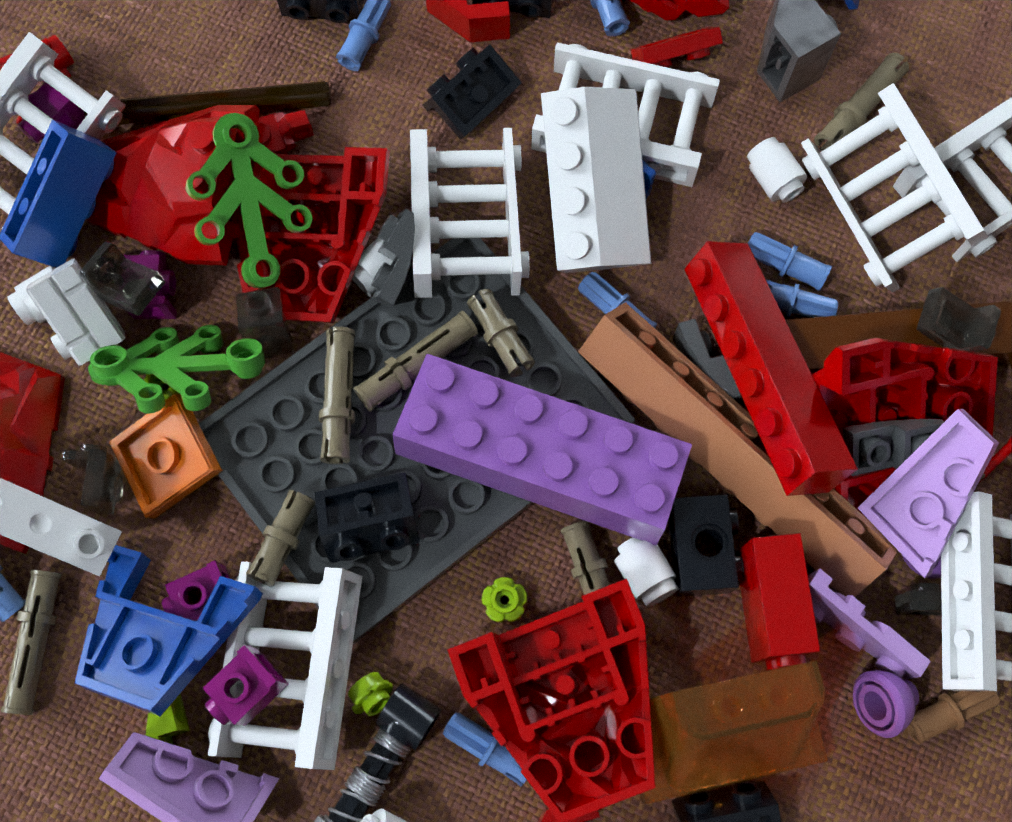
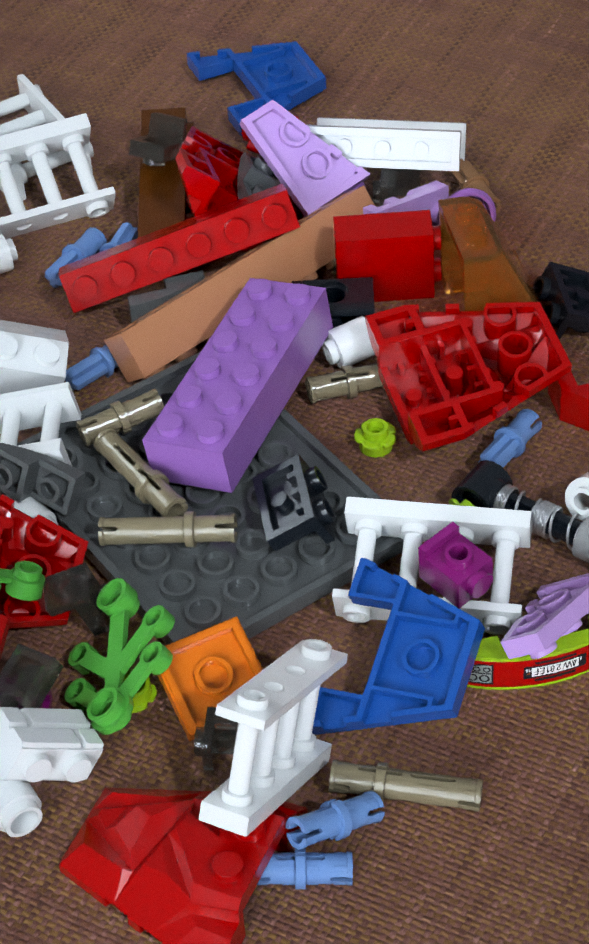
camera: 85 degrees left, 30 degrees down
(178, 590) = (358, 634): magenta brick -> none
(280, 538) = (309, 565): dark tan pin -> none

